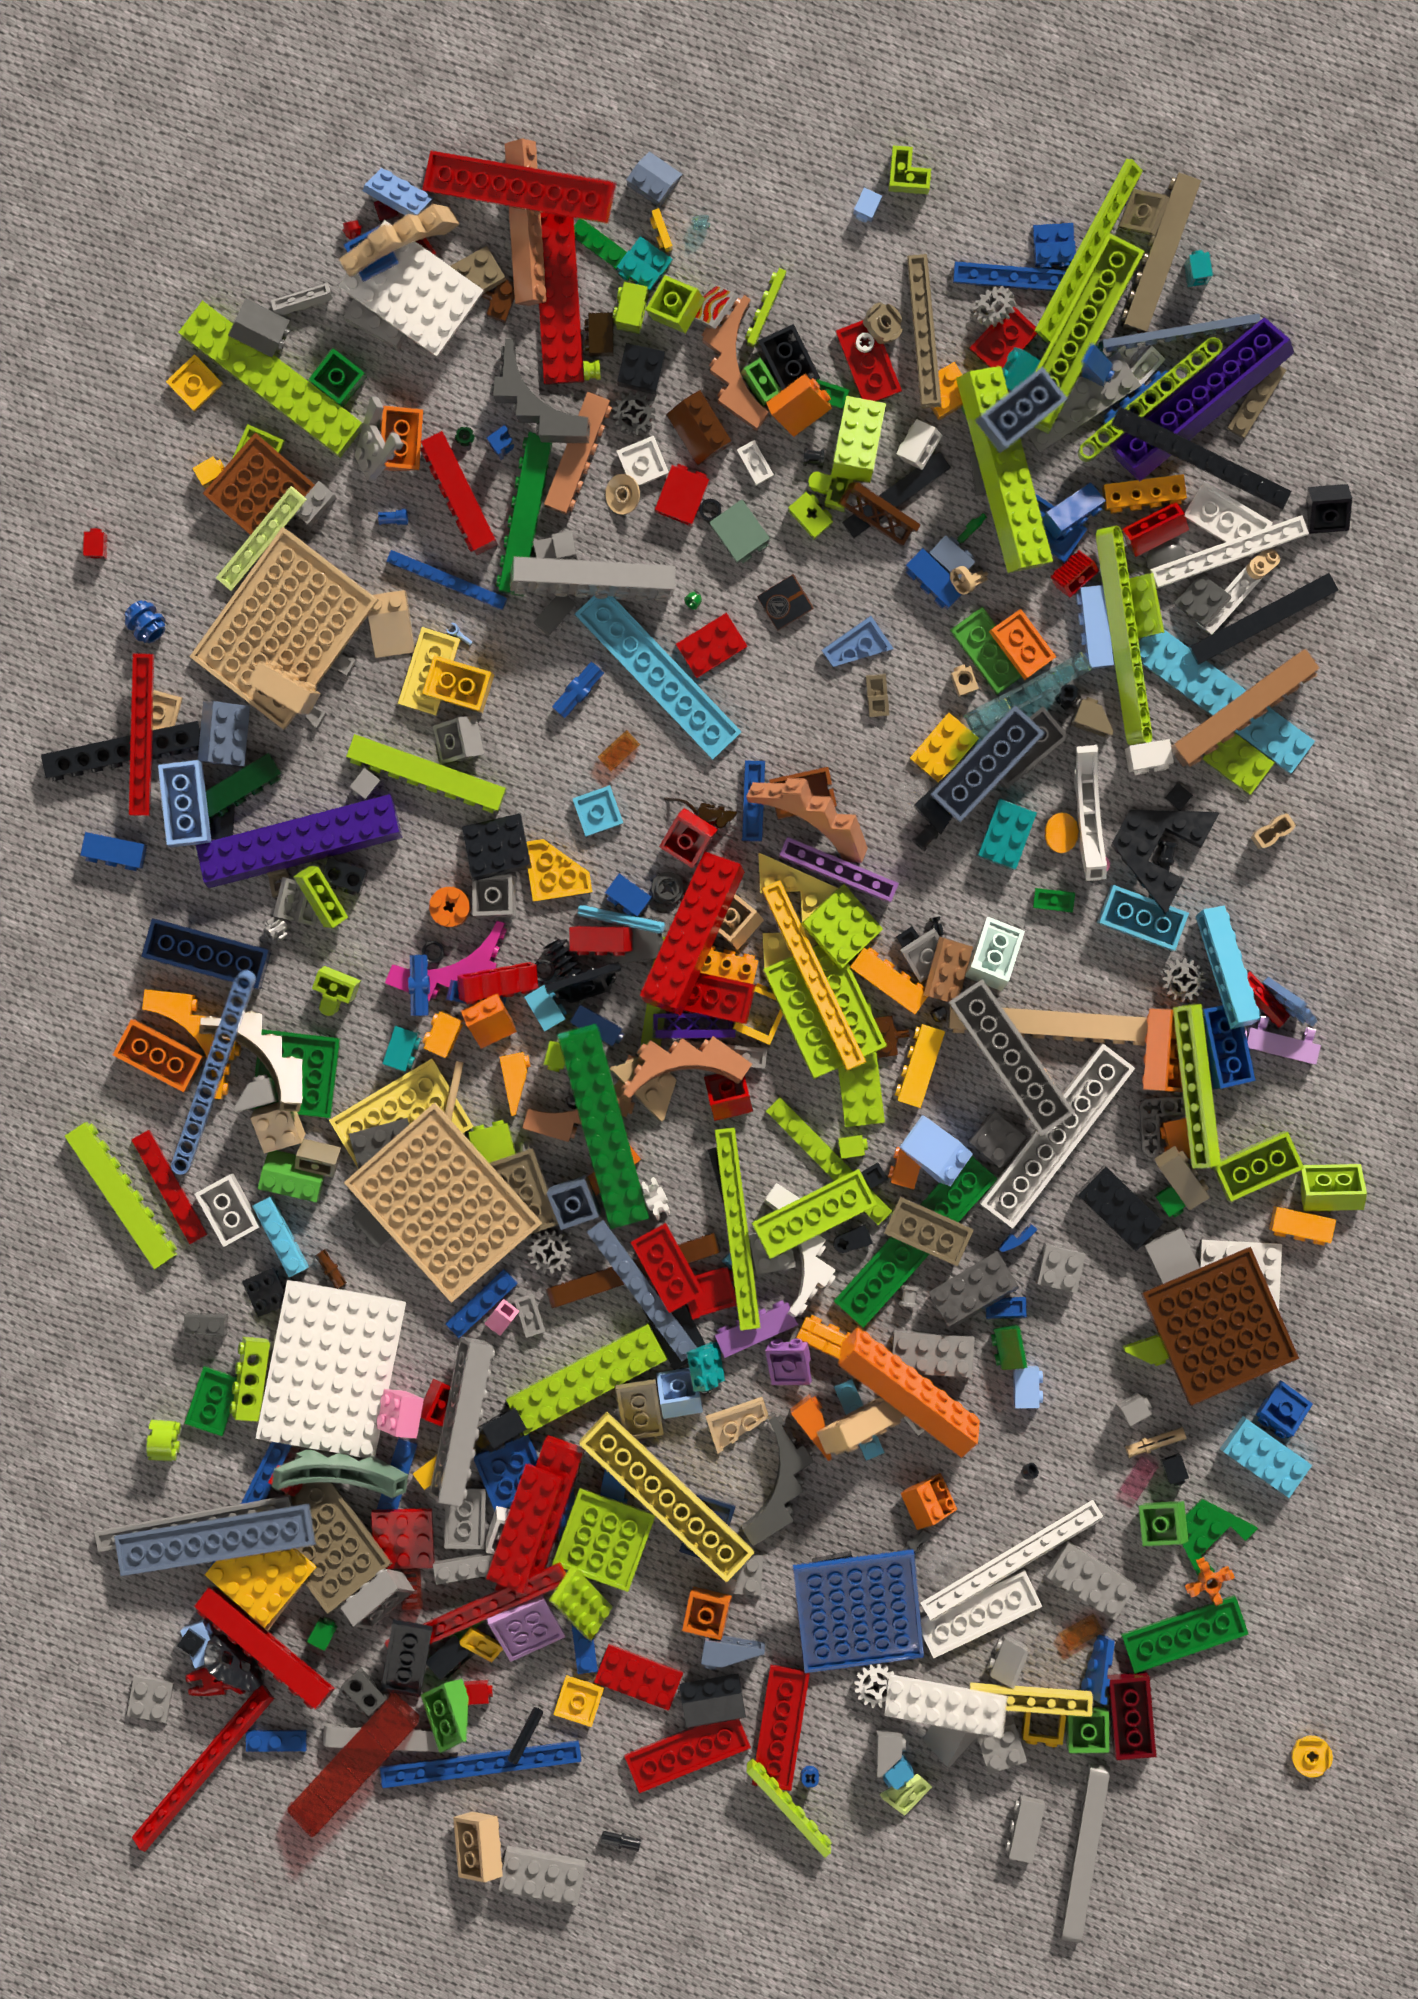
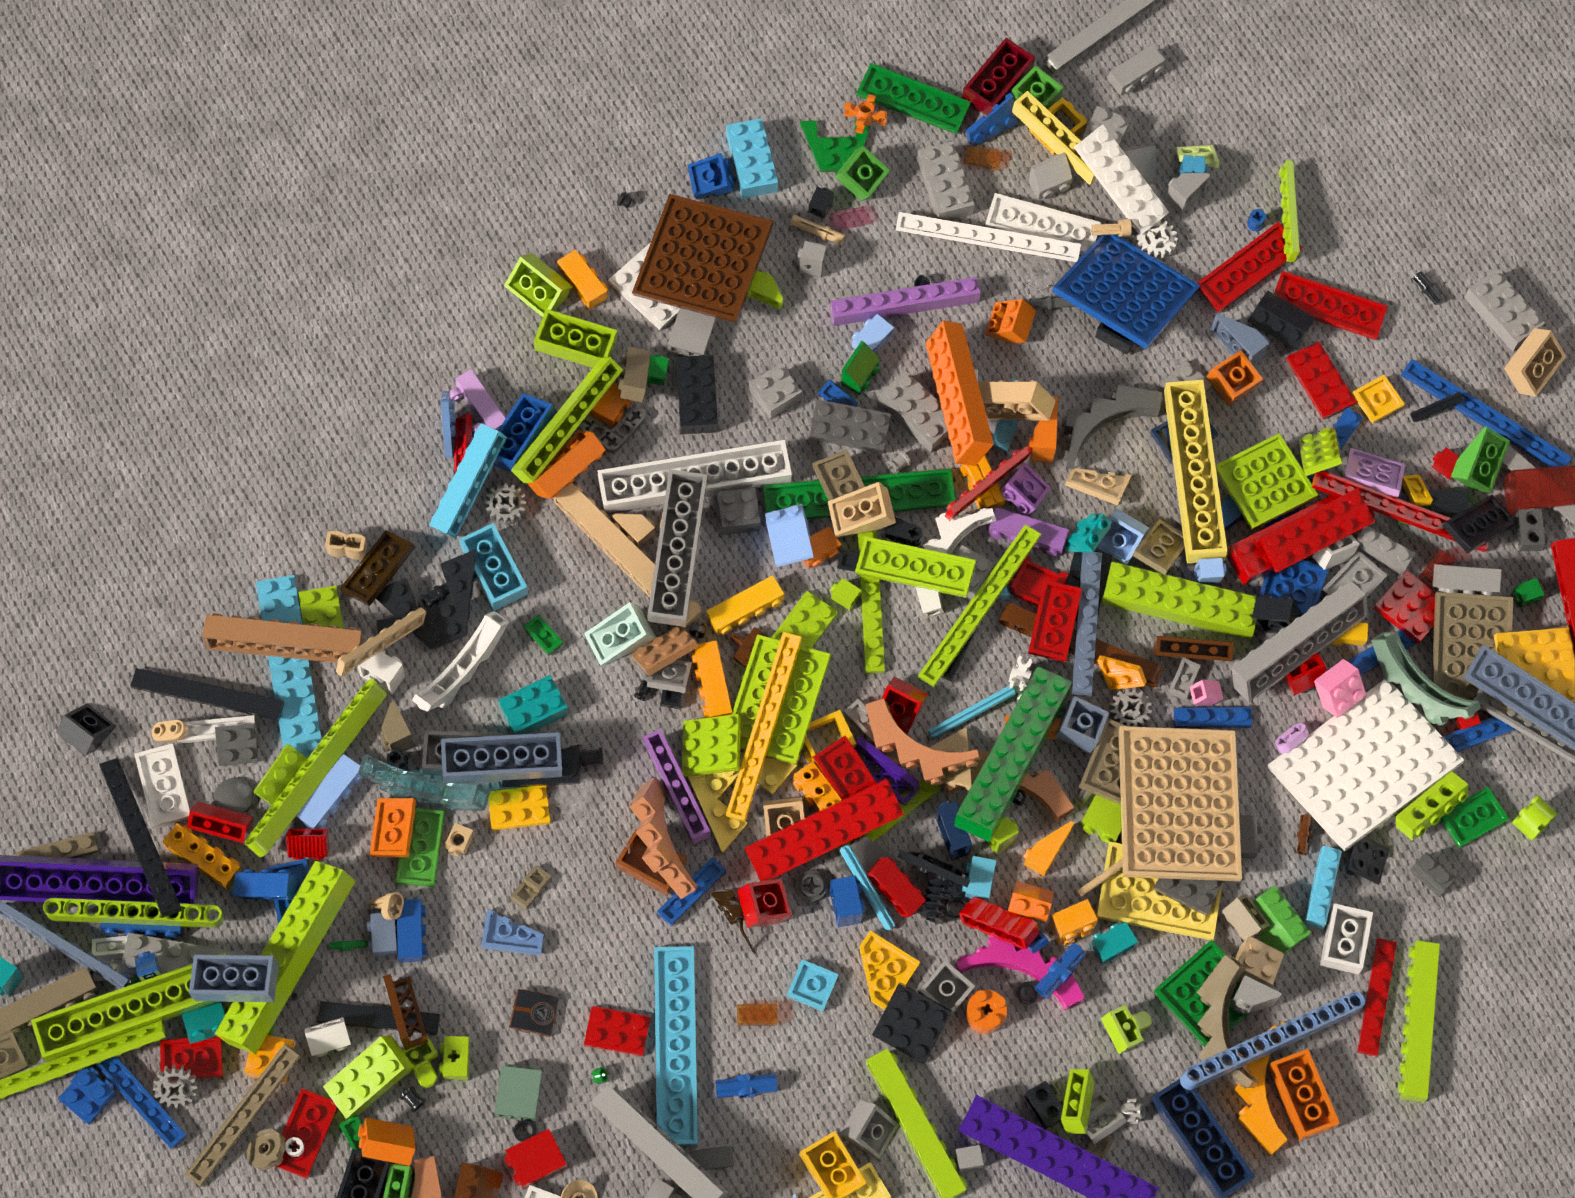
camera: 145 degrees left, 20 degrees down
(405, 1340) = (1292, 738): none -> lavender beam
(543, 1345) = (1193, 648): none -> reddish brown brick
(579, 1270) = (1121, 674): none -> light orange wing
(583, 1421) = (1209, 571): none -> light blue brick
(669, 1136) = (971, 712): none -> medium azure axle
(755, 462) = (459, 1135): white plate -> none
(821, 1328) = (992, 479): none -> plate
(897, 1221) = (862, 510): none -> tan slope
(910, 1666) = (1122, 228): none -> tan piece
(1012, 1242) = (793, 436): blue slope -> none
(1028, 1441) = (905, 301): none -> medium lavender brick
(1061, 832) = (493, 674): light orange piece -> none
(1064, 1052) = (636, 527): none -> tan slope
(1167, 763) = (381, 641): none -> tan plate
(1229, 551) = (184, 759): white tile -> none
(1231, 836) = (377, 568): none -> dark brown plate
(1334, 1326) = (624, 200): none -> black piece

